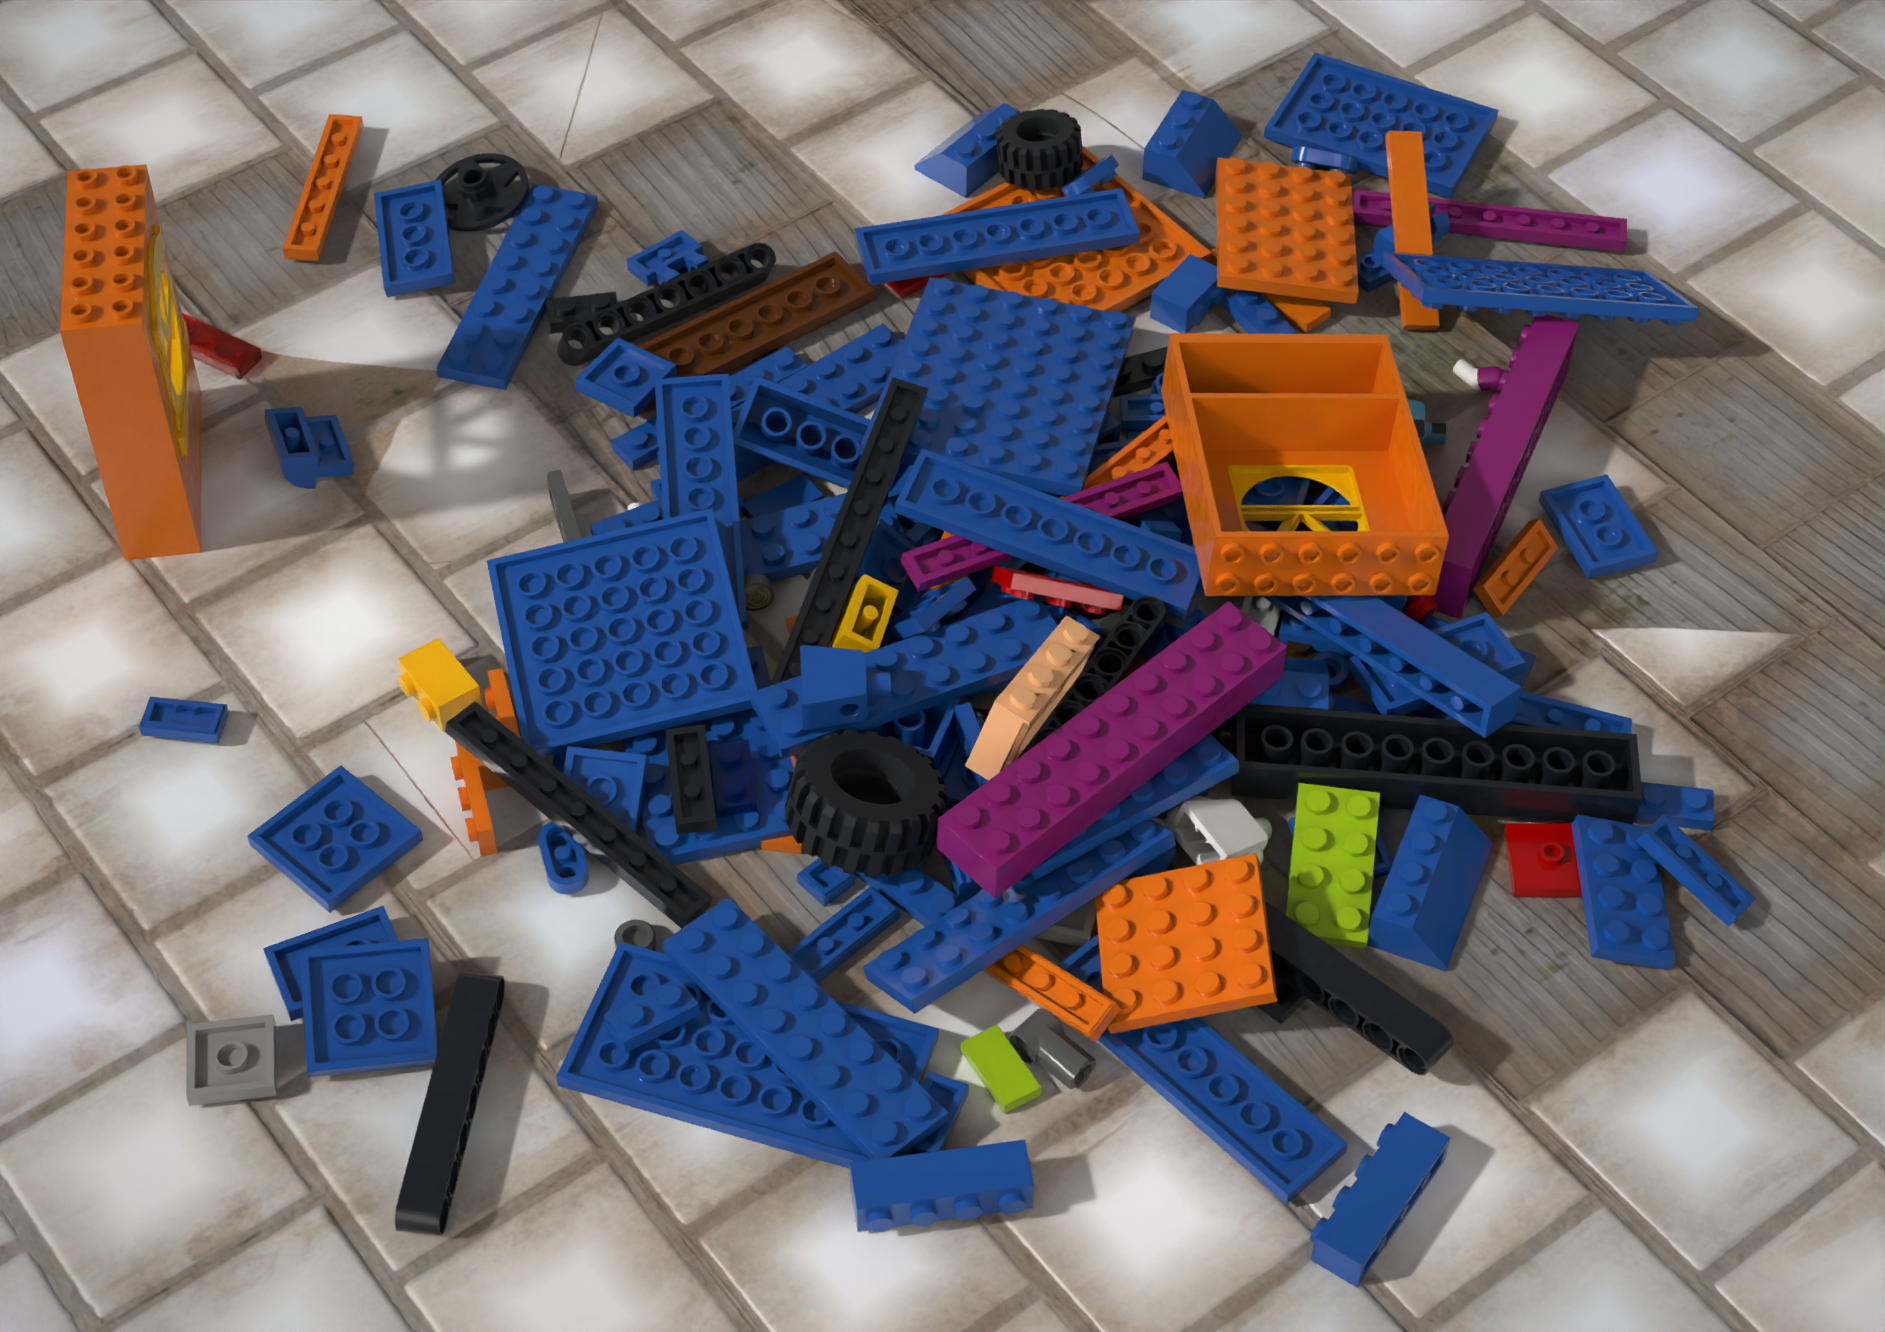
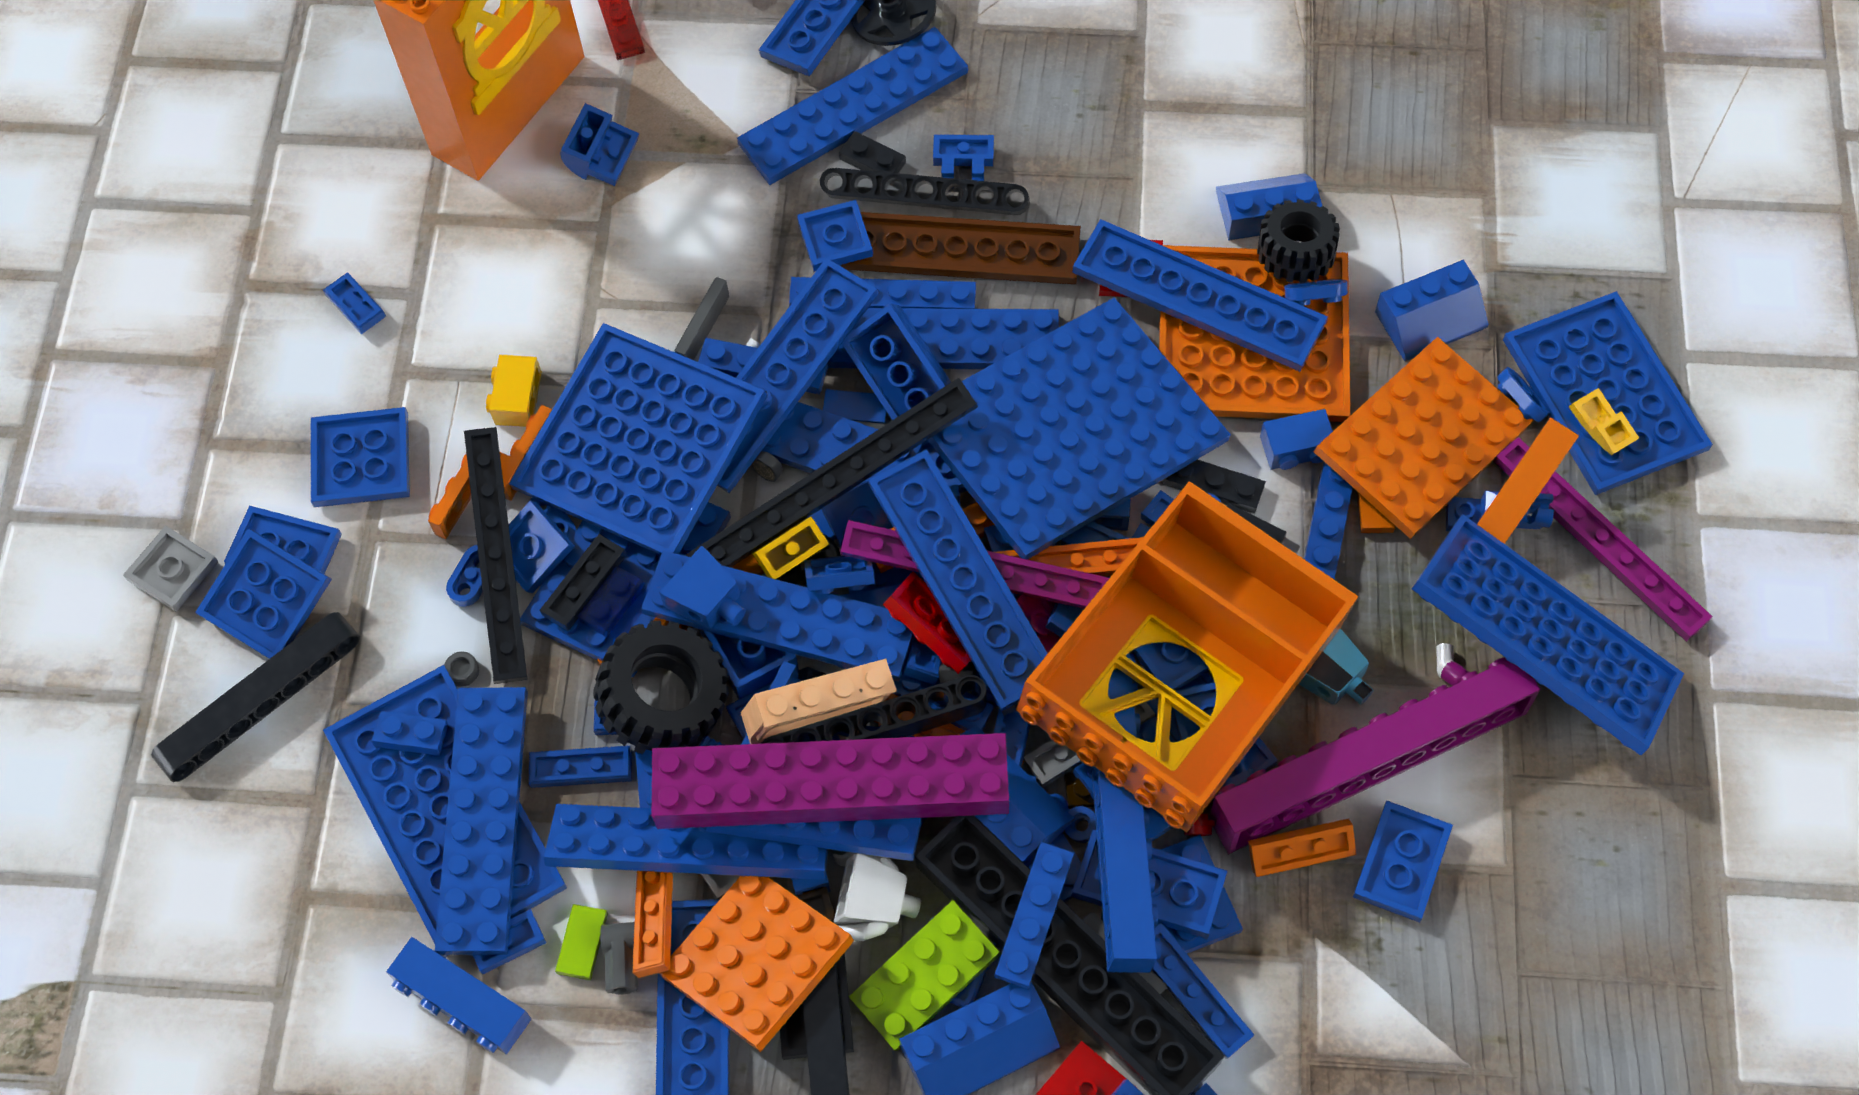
camera: 45 degrees right, 15 degrees up
(1383, 738) = (1034, 915): none -> blue plate
(1432, 137) = (1605, 426): none -> yellow slope

